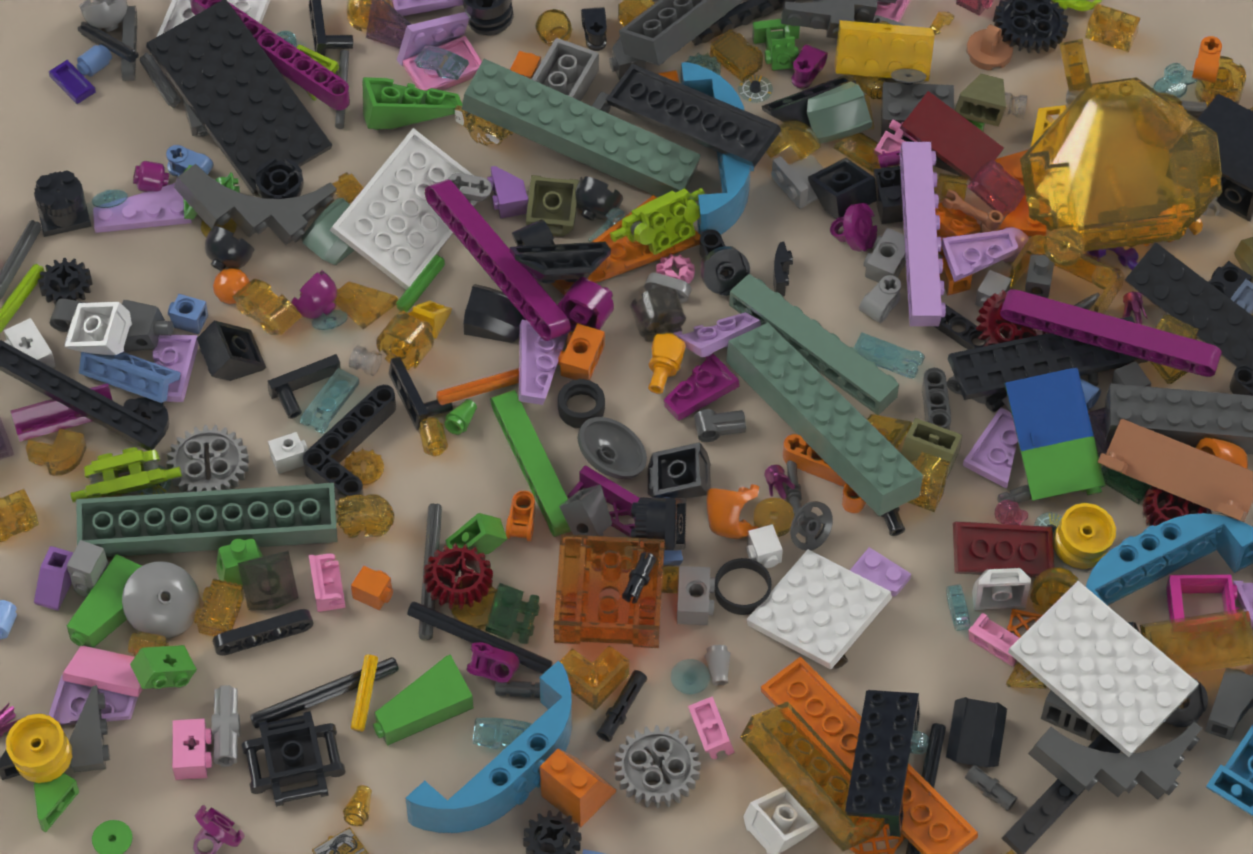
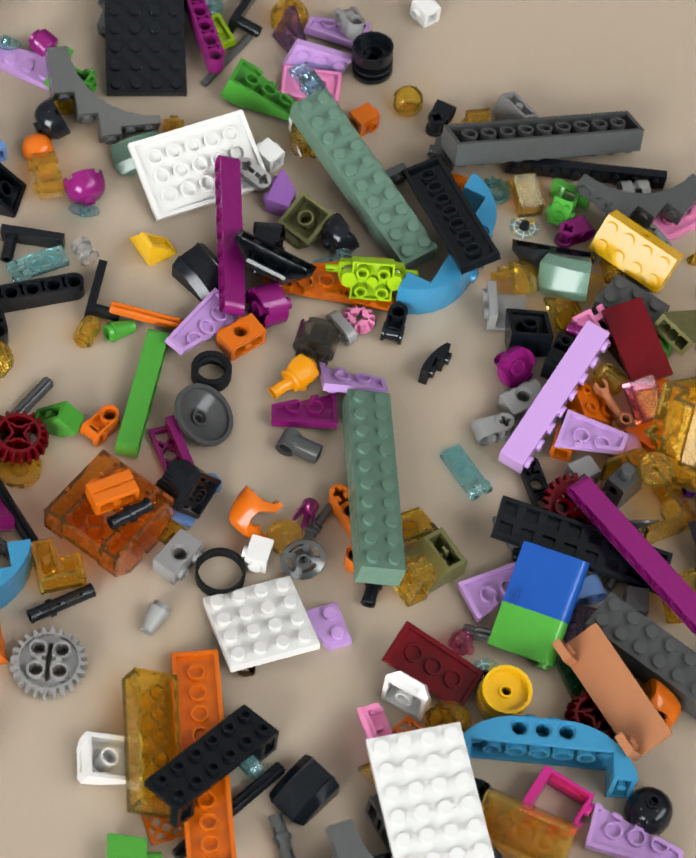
camera: 25 degrees right, 0 degrees up
(187, 158) = (82, 53): medium blue piece -> none
(279, 179) = (125, 93): black cylinder -> none
(364, 303) = (118, 212): clear yellow wing -> none
(373, 469) = (24, 331): clear yellow gear -> none
(406, 338) = (121, 253): clear yellow brick -> none
(420, 284) = (170, 221): bright green axle -> none
(467, 156) = (271, 155): none -> white brick
(505, 610) = (32, 484): clear green plate -> none
(568, 68) = (390, 136): light grey brick -> none
(587, 512) = (145, 450): dark grey torso -> none
(606, 567) = (112, 491): none -> orange brick
(679, 472) = (241, 463): black slope -> none
(690, 676) = (127, 613): clear light blue piece -> none
(711, 727) = (110, 660): bright pink hinge -> none
(713, 264) = (383, 329): black plate -> none
(818, 346) = (416, 432): sand green brick -> none
(908, 76) = (638, 279): dark grey piece -> none
(936, 394) = (473, 520): dark grey beam -> none
(958, 607) = (366, 687): clear light blue beam -> none
(1133, 301) = (684, 546): flat silver piece -> none

